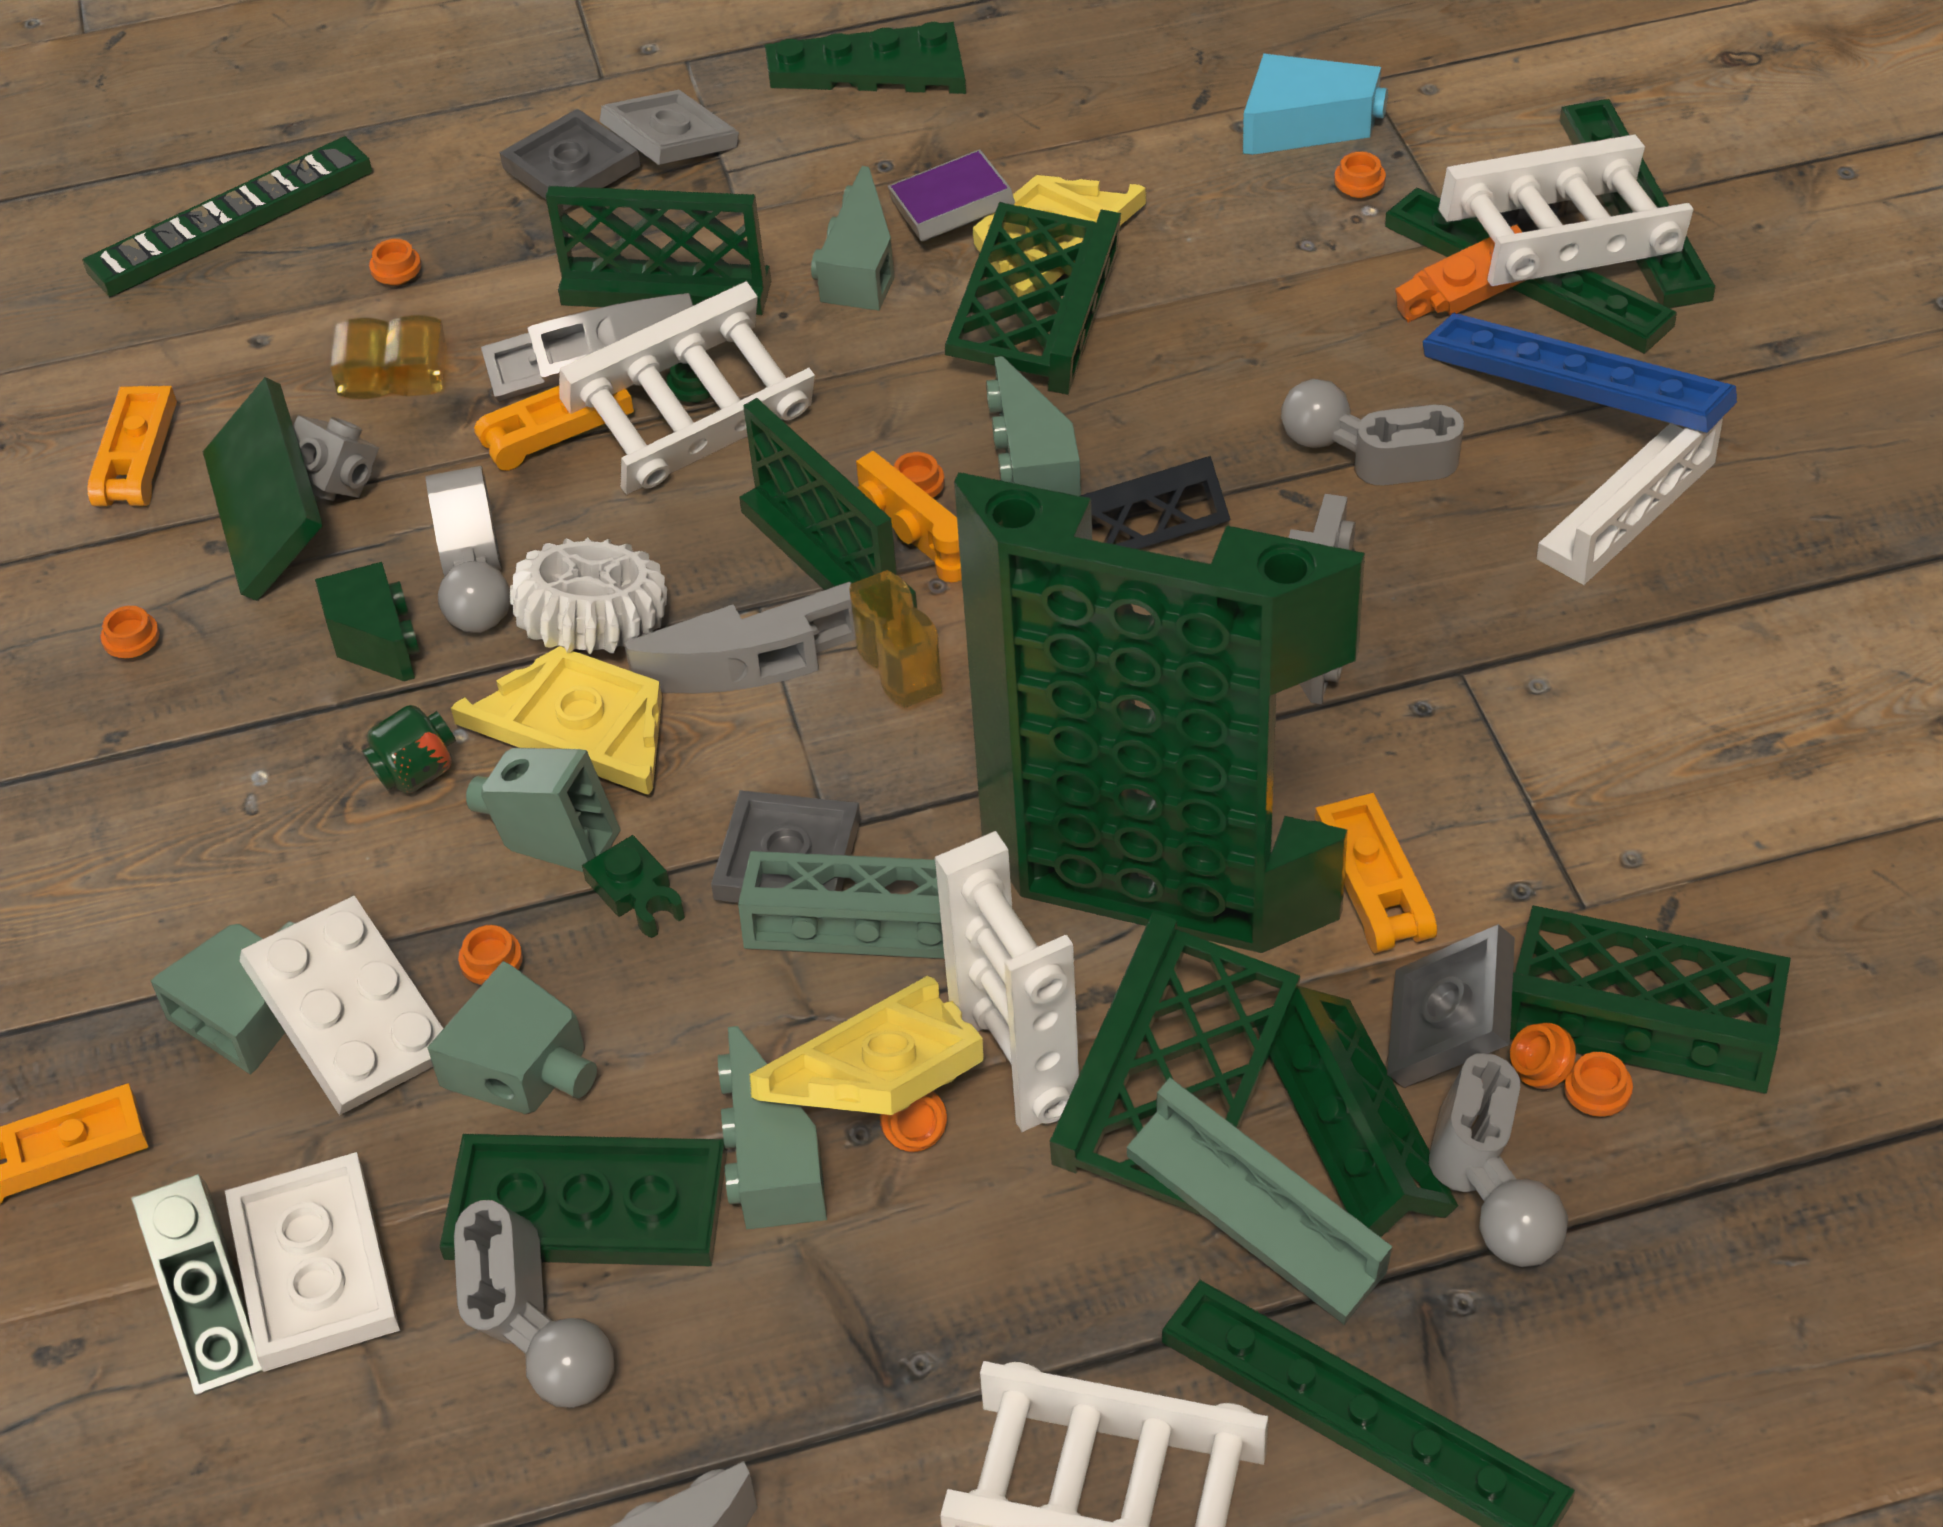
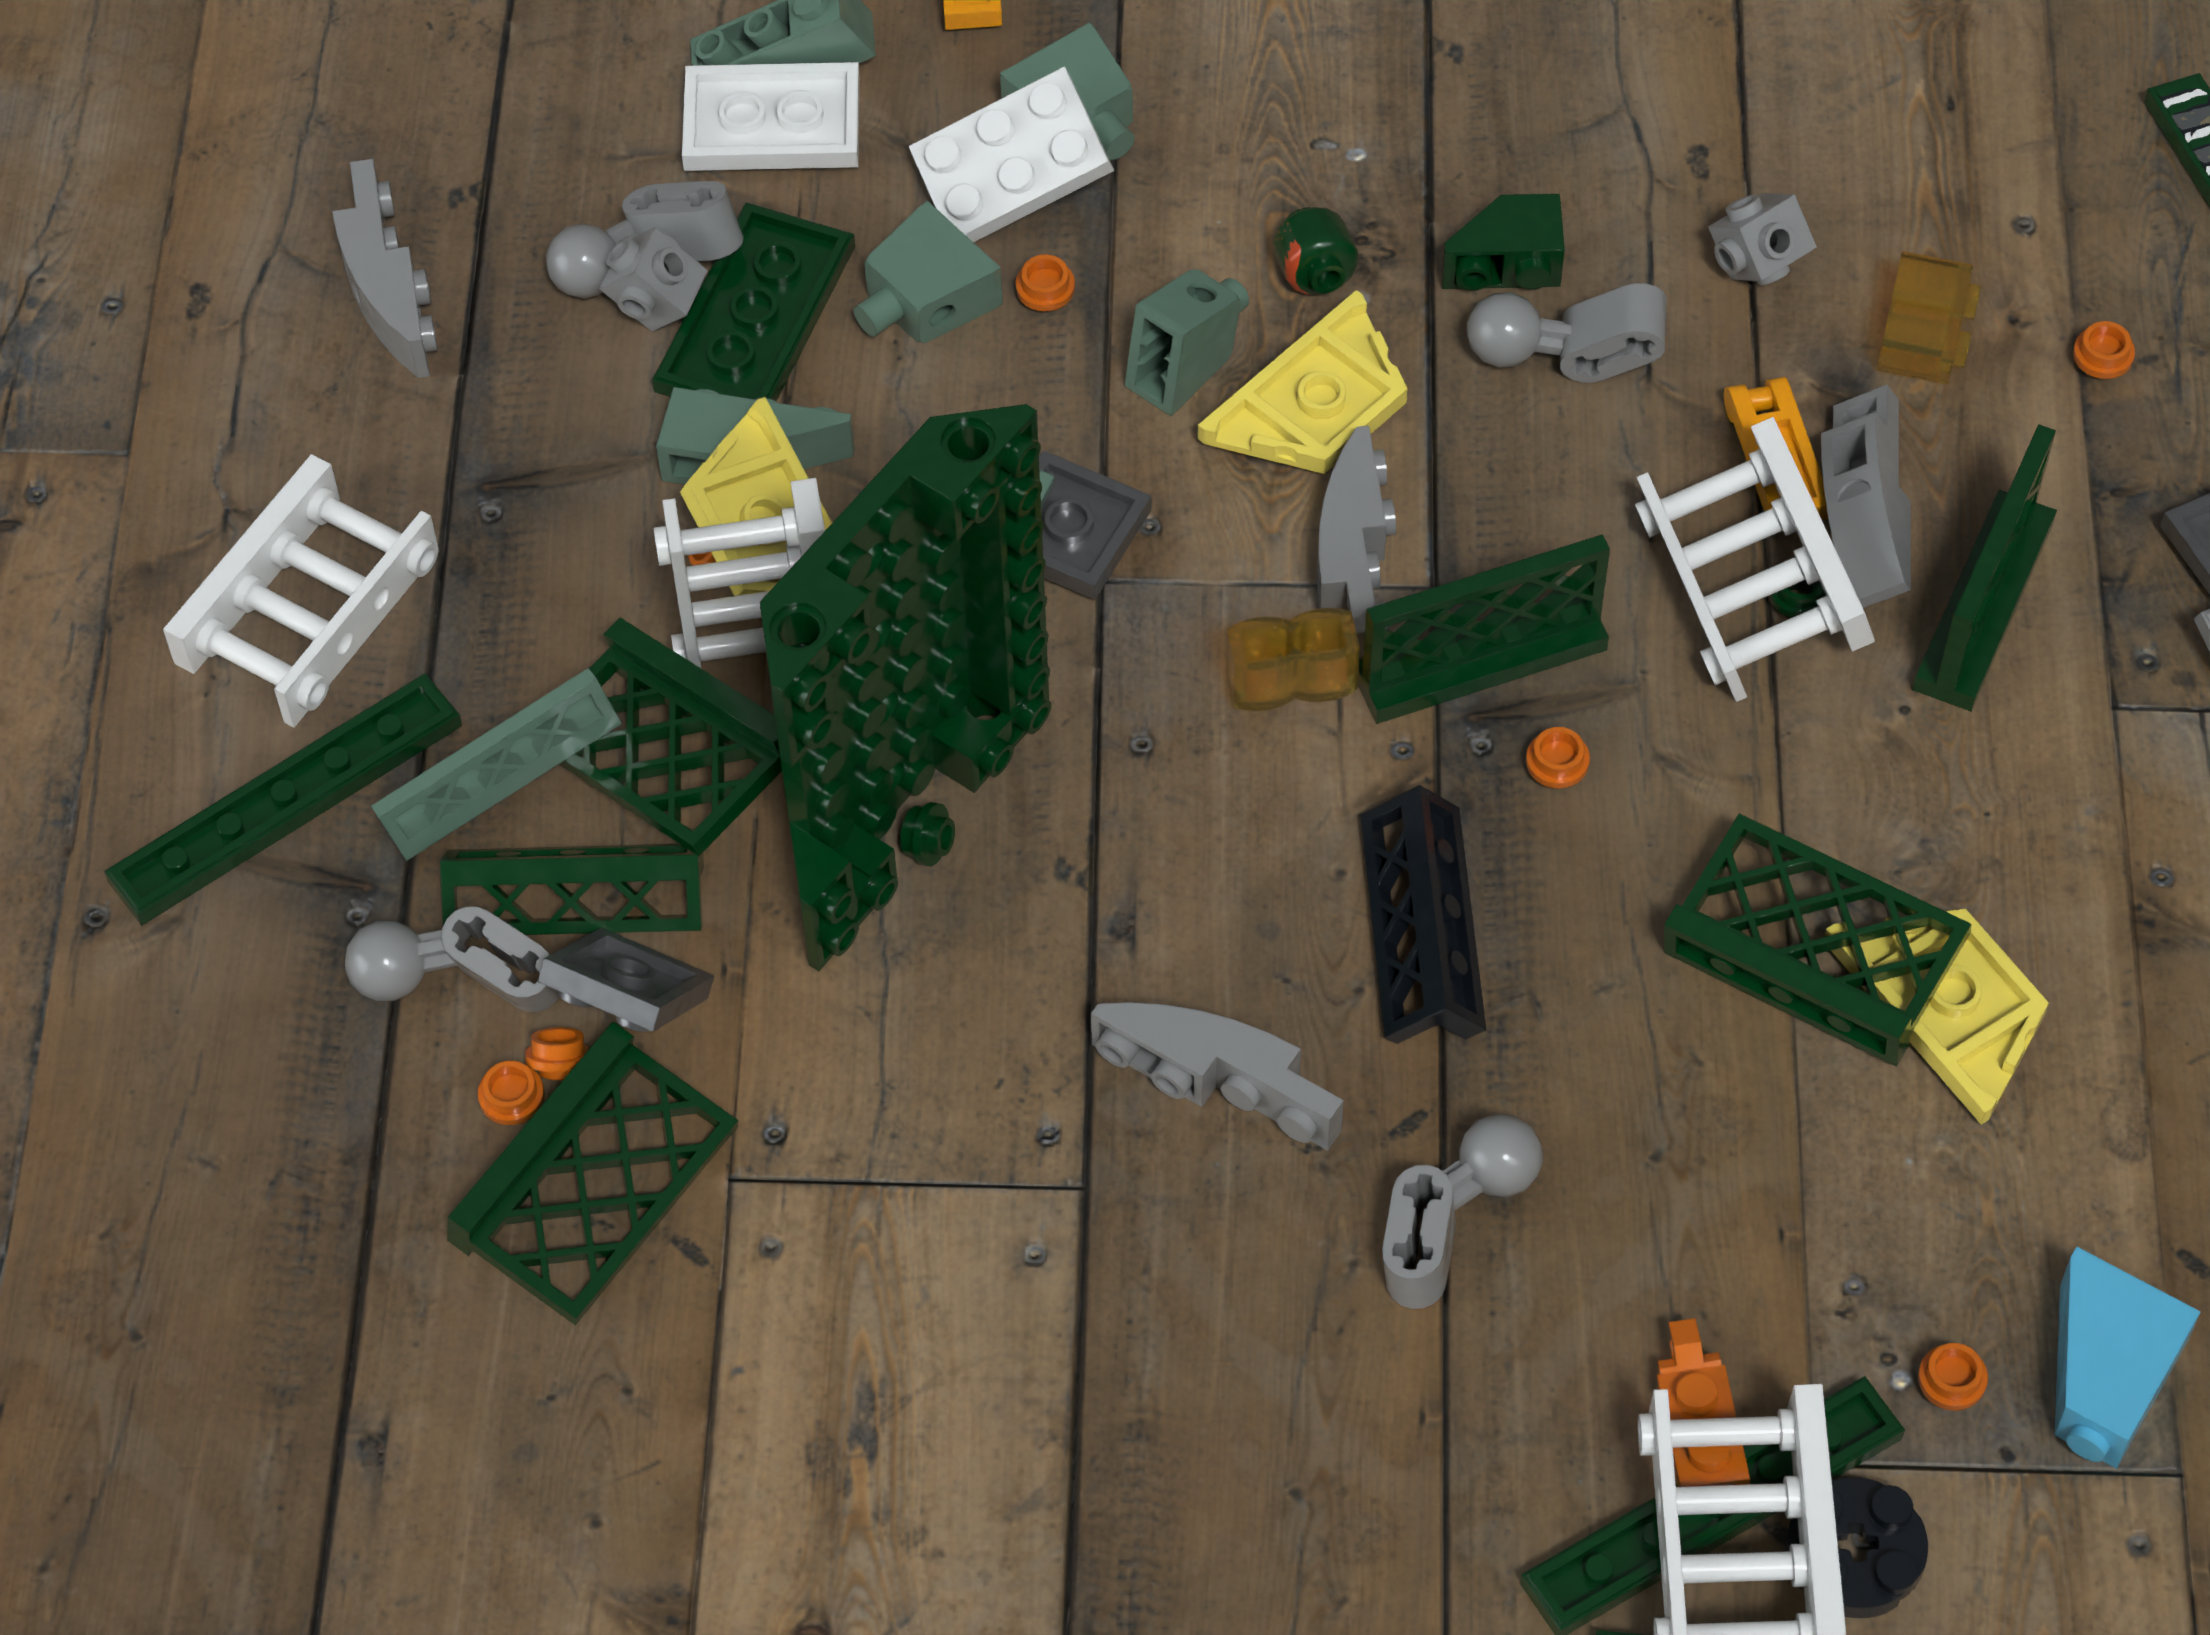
camera: 105 degrees right, 10 degrees up
(129, 632) = (1578, 65): orange plate -> none
(131, 445) = (1861, 89): light orange plate -> none
(261, 489) = (1730, 174): dark green tile -> none
(588, 595) = (1473, 388): white gear -> none
(597, 1255) = (652, 278): none -> light grey brick
(633, 879) = (1093, 403): dark green plate -> none
(857, 255) = (1972, 792): sand green slope -> none
(913, 514) = (1484, 732): light orange plate -> none
(950, 195) = (2041, 904): dark purple tile -> none
(1034, 434) = (1565, 874): sand green slope -> none
(1379, 874) = (834, 995): light orange plate -> none
(1581, 372) = (1458, 1444): blue tile -> none
(1629, 501) = (1260, 1444): white fence -> none

